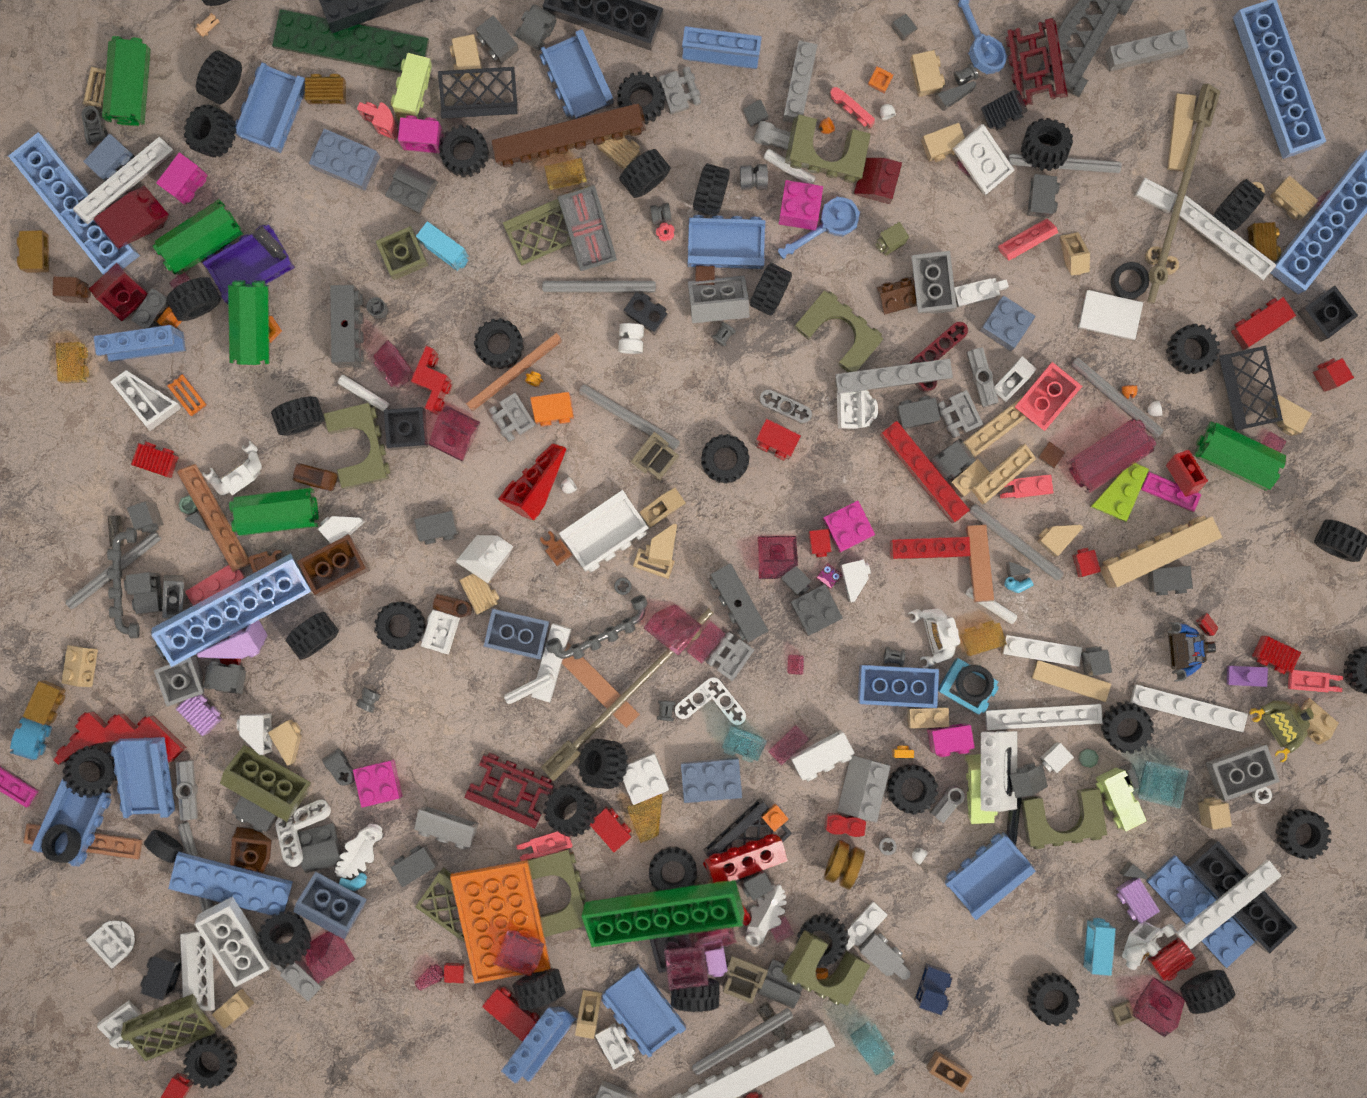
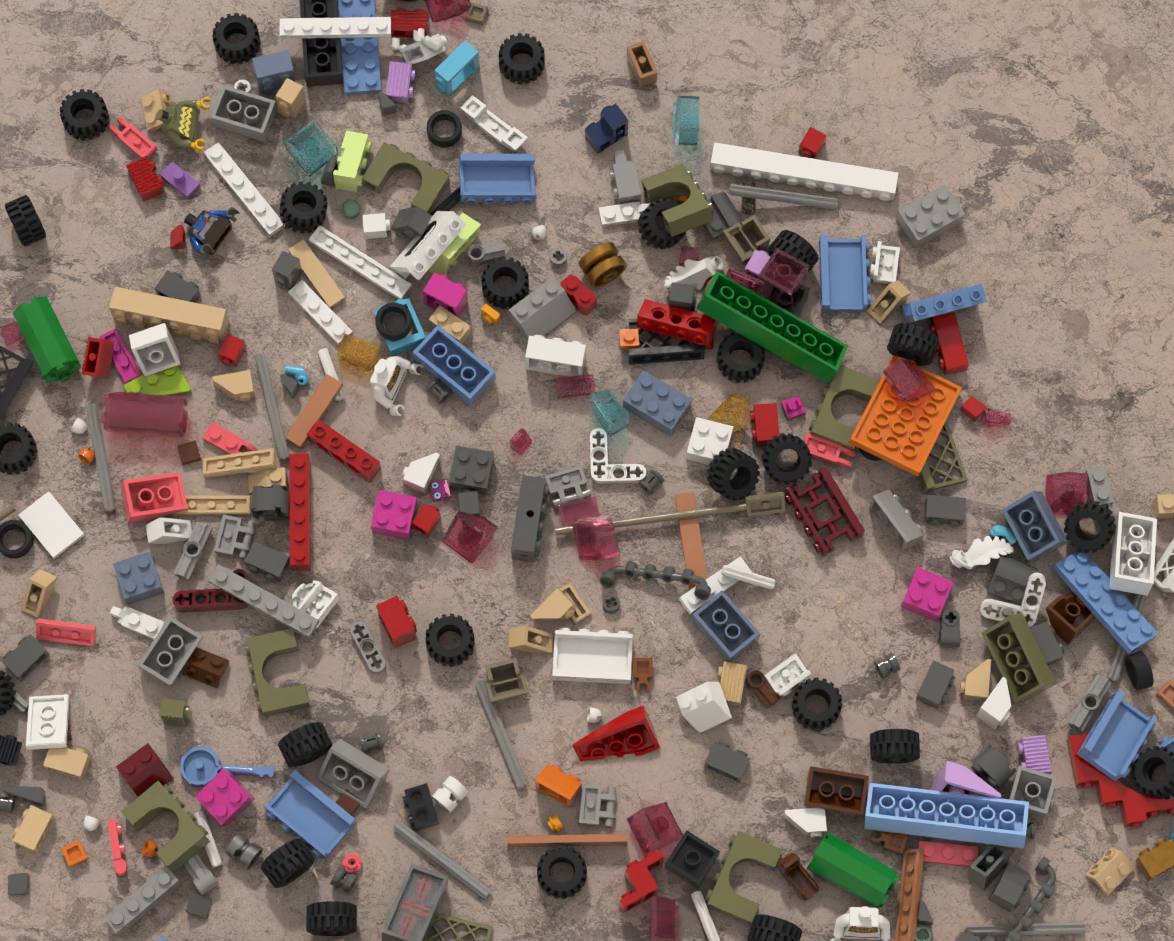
camera: 140 degrees left, 15 degrees down
(318, 713) = (935, 684): none -> dark grey brick
(600, 861) = (793, 407): none -> dark pink tile
(1030, 922) = (492, 125): none -> white slope
(1071, 901) = (444, 115): none -> black tyre
(1147, 513) = (154, 349): none -> white brick
(1248, 827) = (273, 70): none -> sand blue brick

